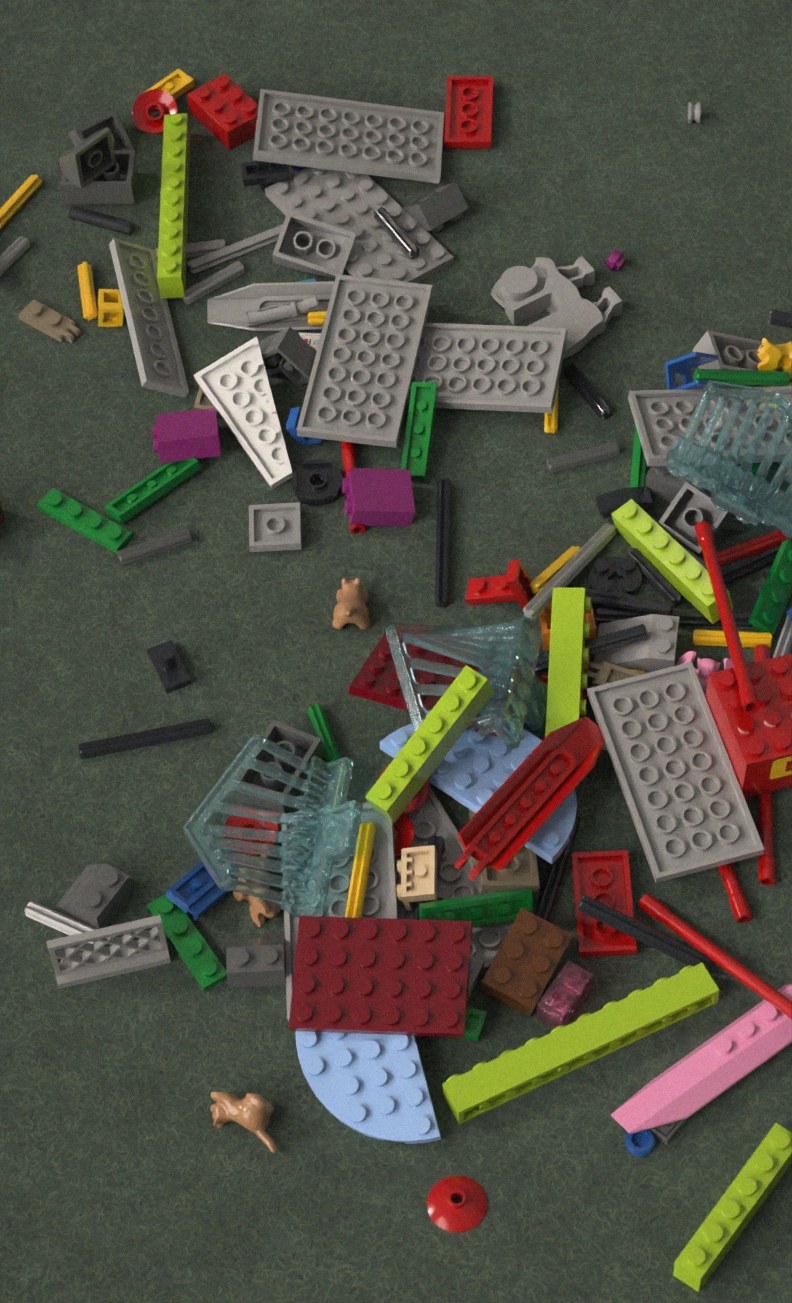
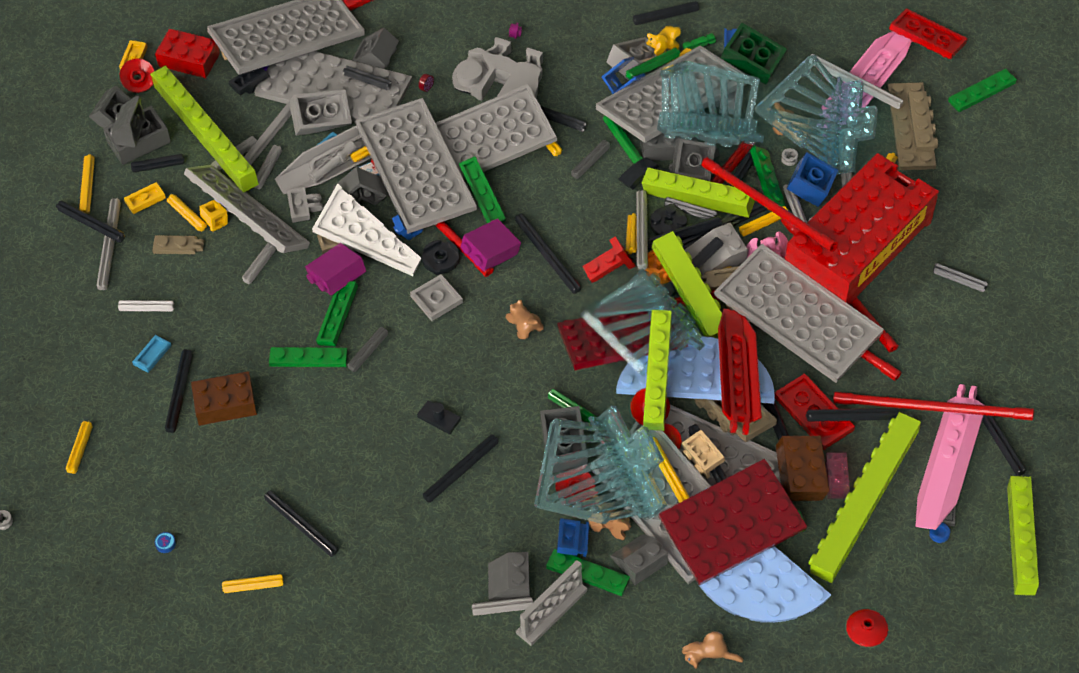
camera: 35 degrees left, 0 degrees up
(56, 252) = (144, 198): none -> yellow plate
(113, 388) = (258, 263): none -> light grey axle
(212, 341) = (299, 204): none -> light grey hinge
(463, 272) = (426, 82): none -> dark red tile
(481, 908) = (754, 451): green plate -> none

